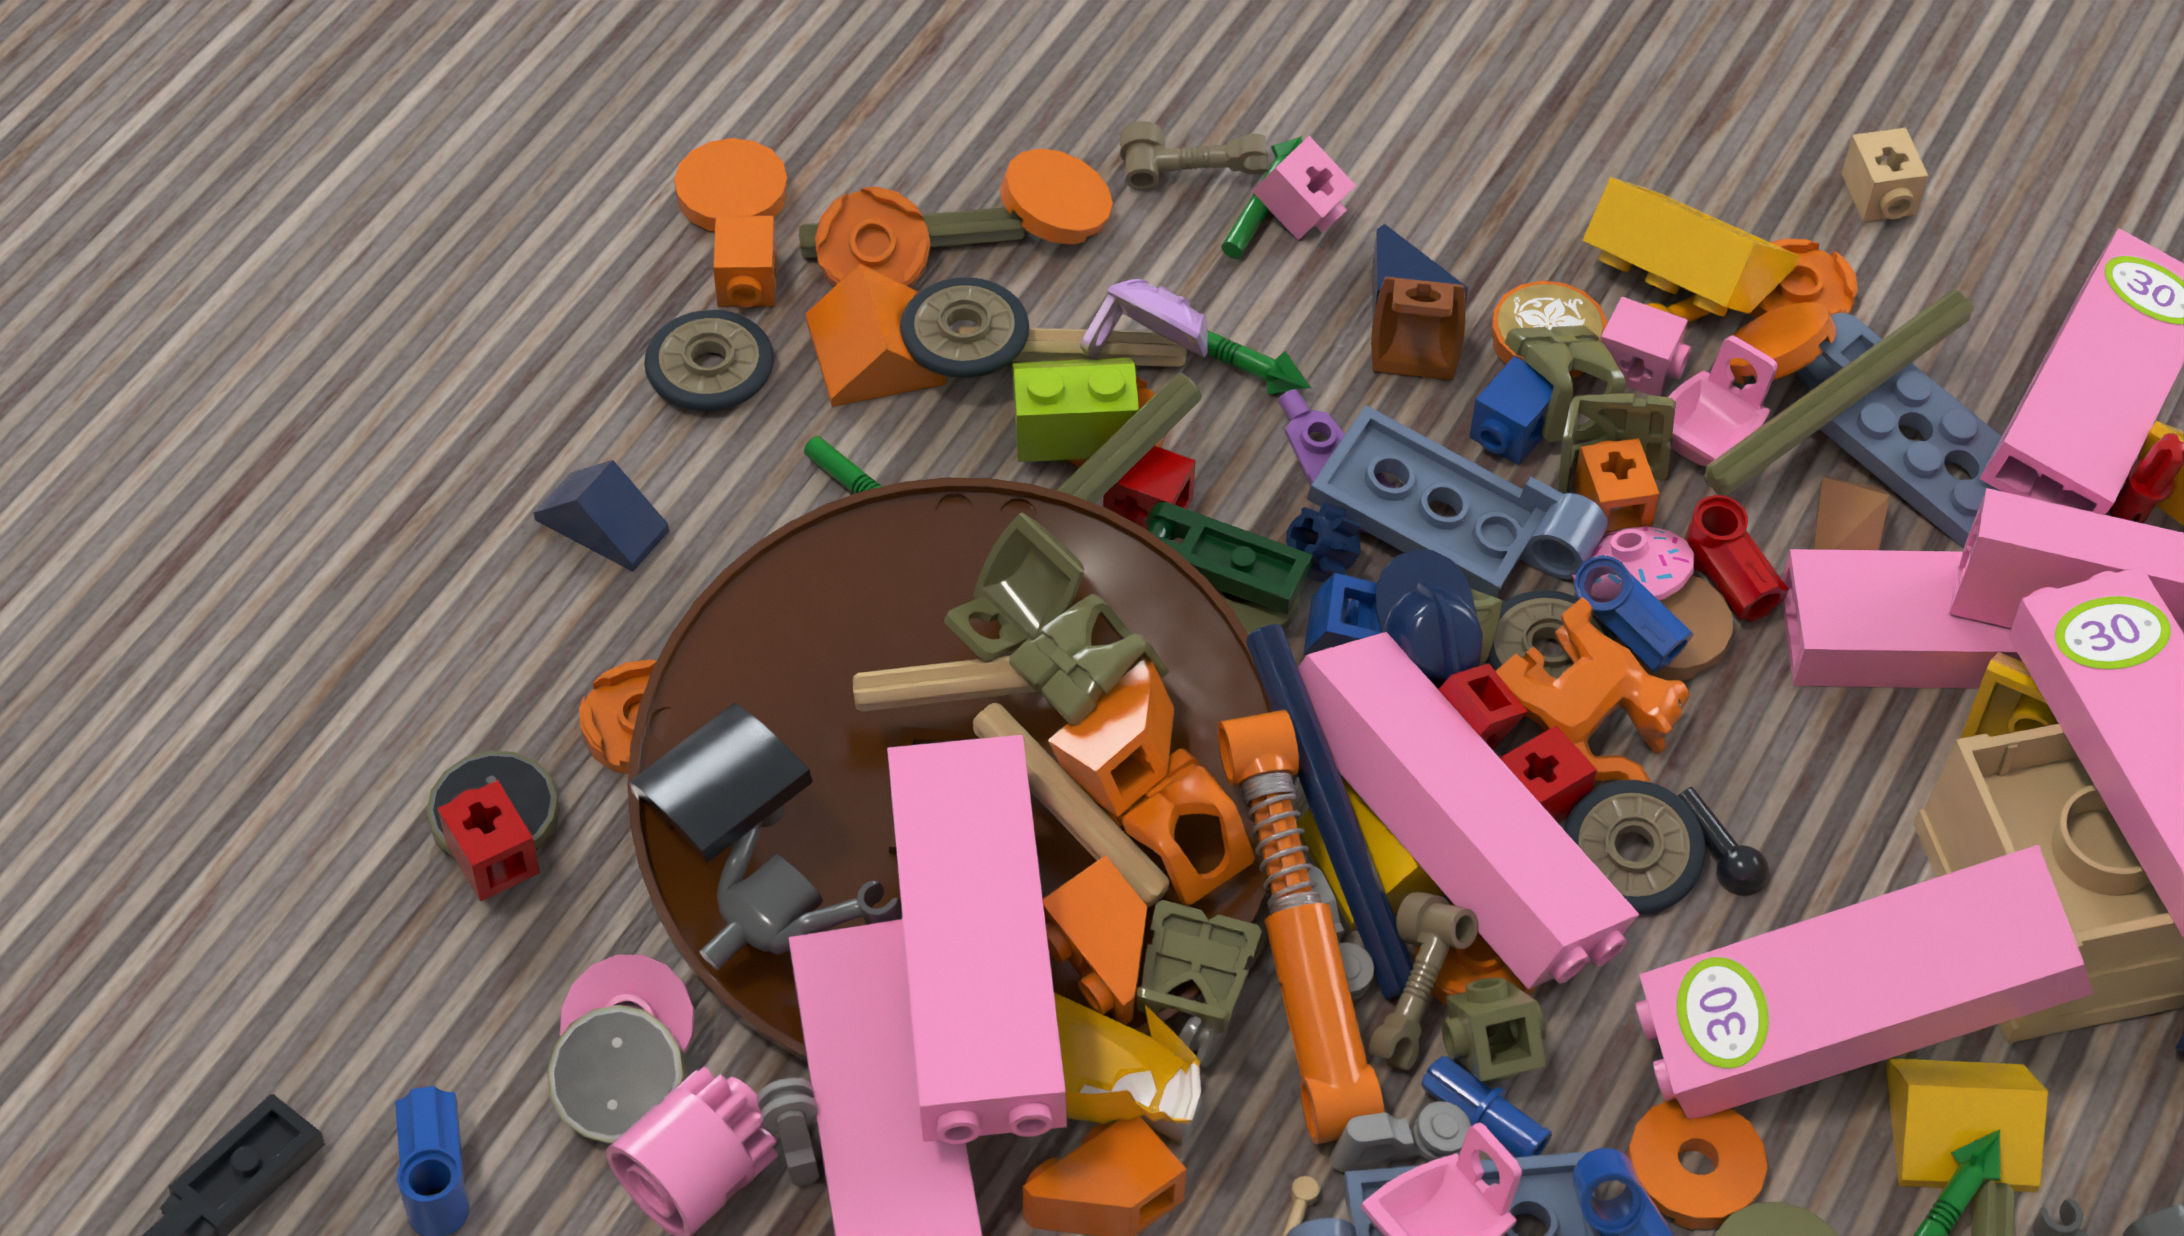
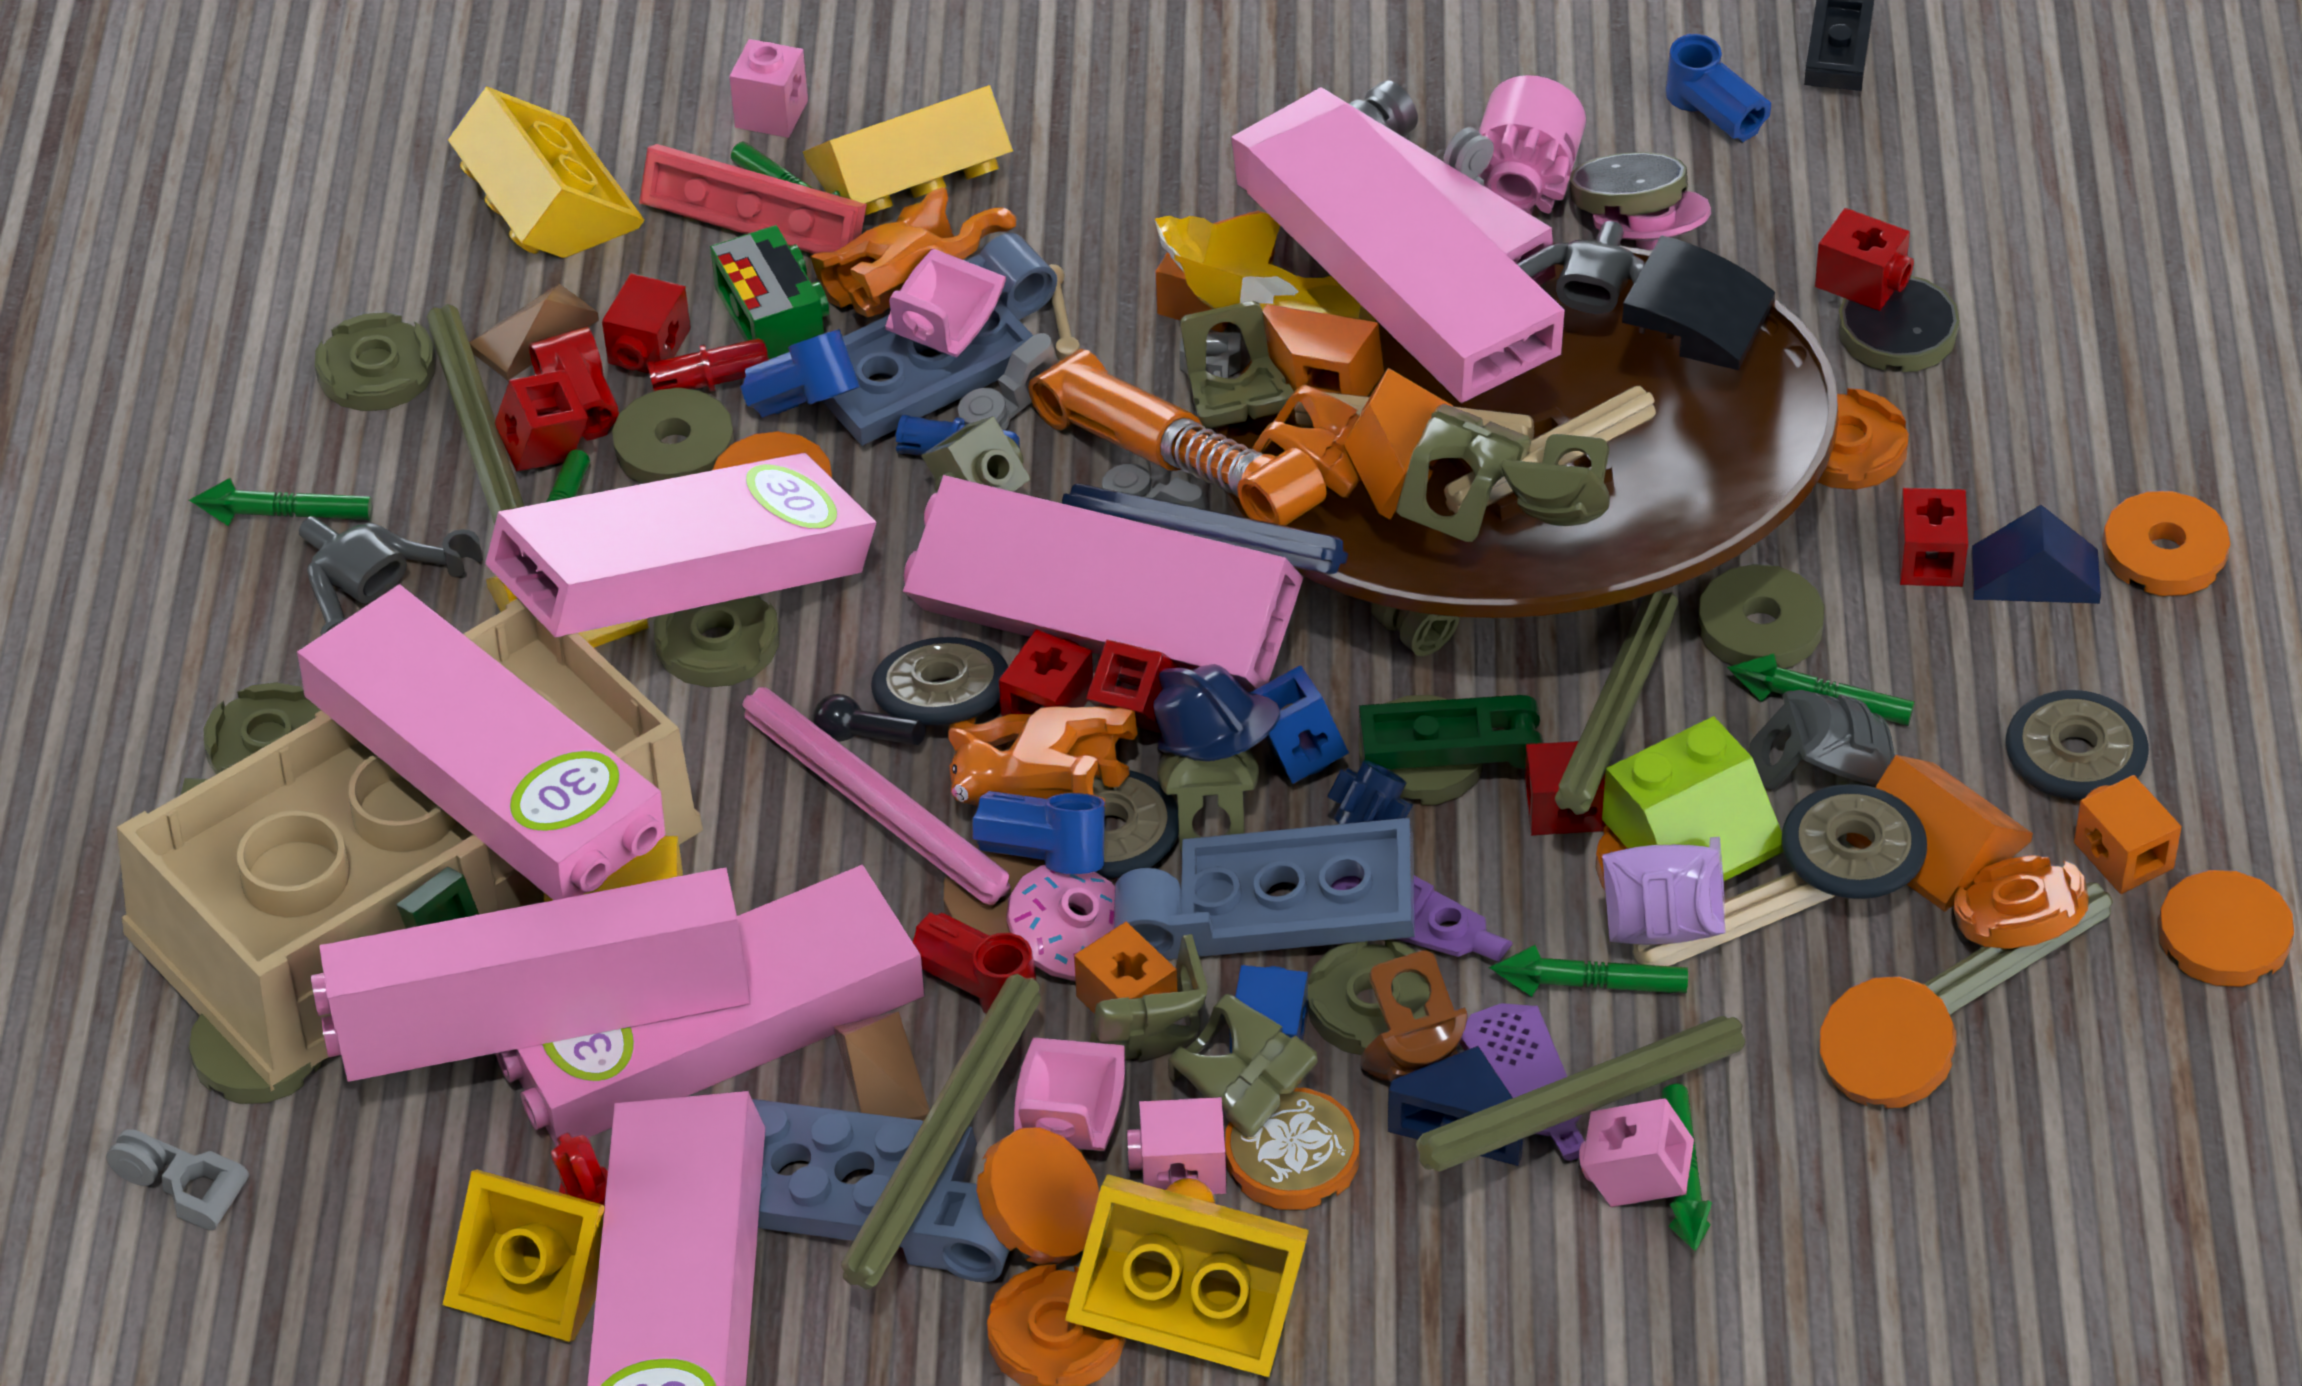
camera: 155 degrees right, 5 degrees down
(470, 463) = (2173, 517): none -> orange tile
(667, 565) = (1933, 523): none -> red brick
(908, 427) = (1828, 733): none -> dark grey piece
(1145, 155) = (1830, 1141): dark tan brick -> none
(1322, 224) = (1579, 1093): none -> olive axle
(1333, 313) = (1523, 1058): none -> medium lavender piece
(1420, 389) = (1338, 980): none -> olive tile
(1435, 927) = (1056, 482): dark tan brick -> none
(1755, 753) = (877, 796): none -> bright pink axle

